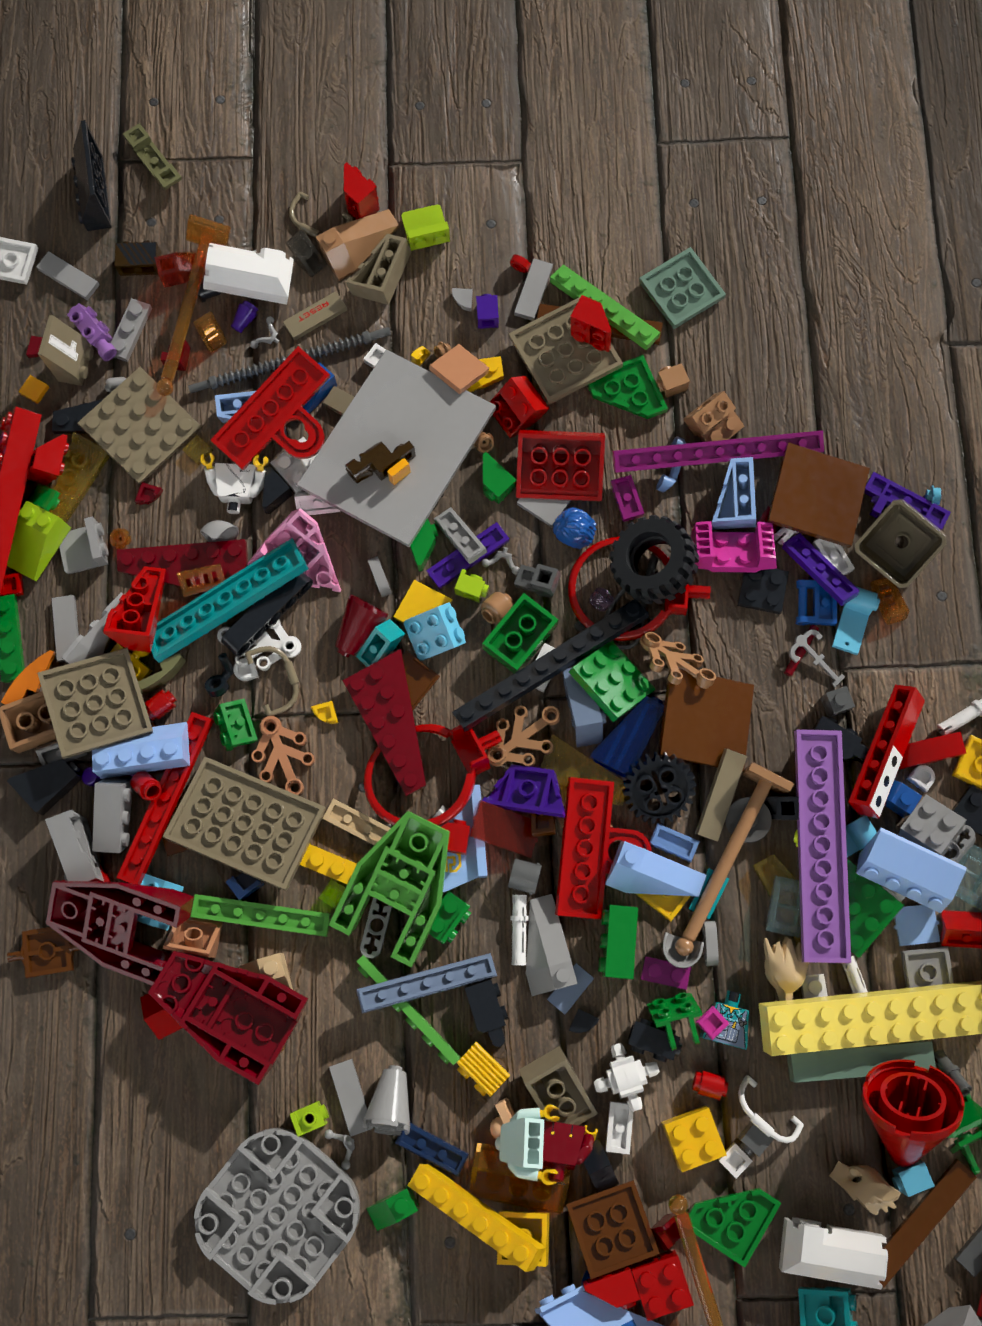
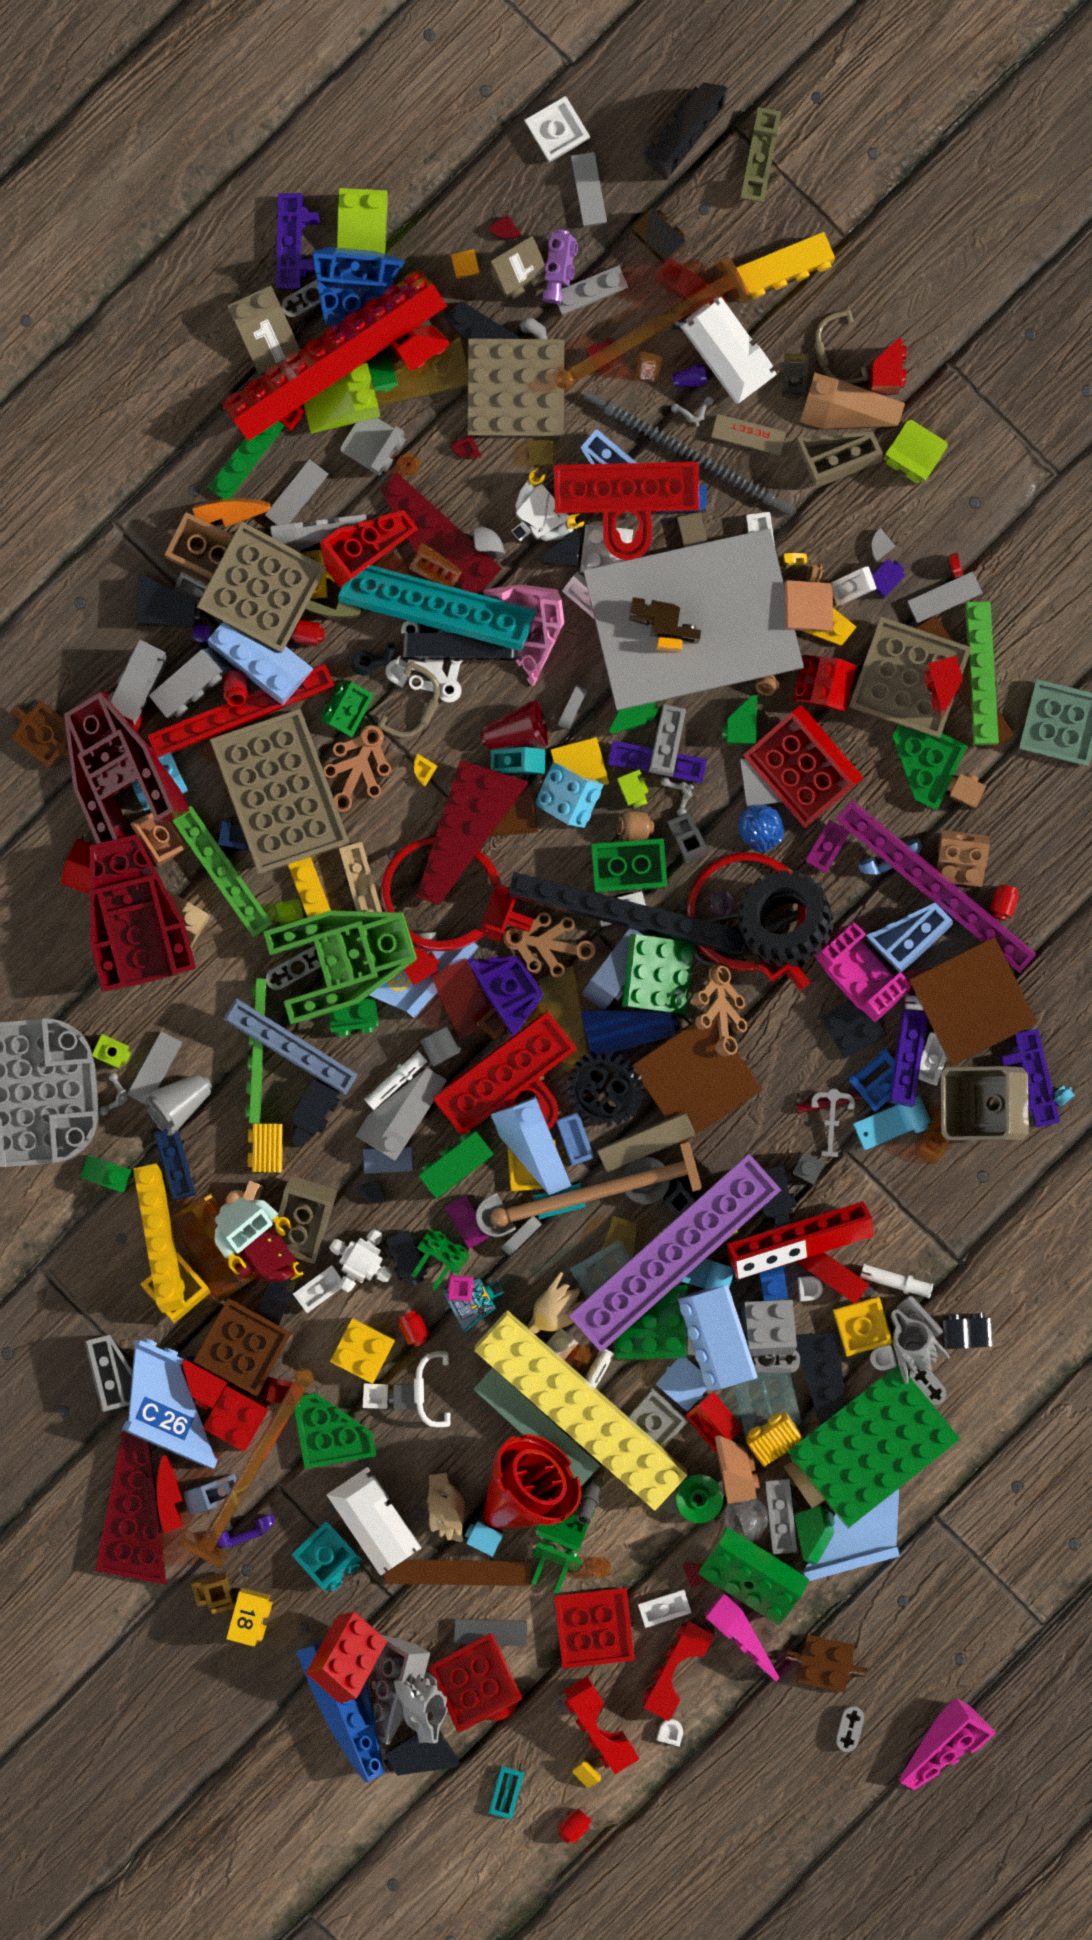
camera: 40 degrees right, 10 degrees up
(236, 196) = (787, 264): none -> yellow brick
(473, 331) = (853, 586): none -> white plate
(768, 420) = (1004, 902): none -> red brick
(834, 980) = (581, 1355): none -> clear orange plate

